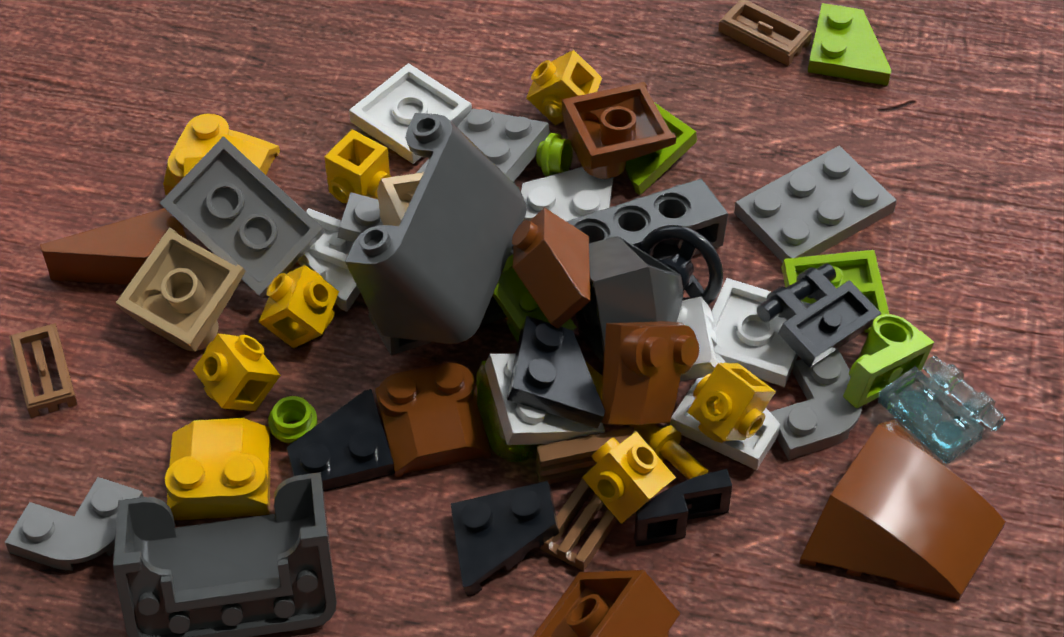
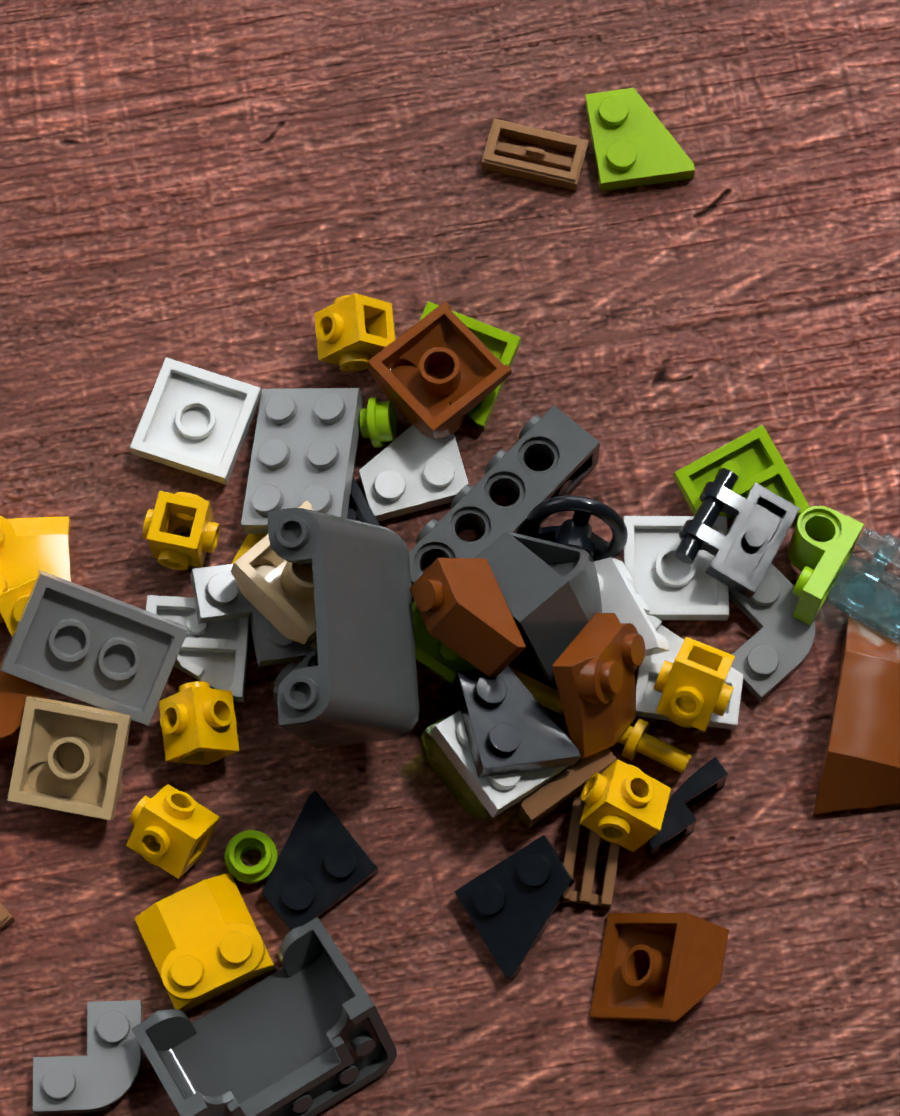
camera: 20 degrees left, 20 degrees up
(431, 418) = (391, 800): dark orange slope -> none
(815, 206) = (676, 379): light grey plate -> none

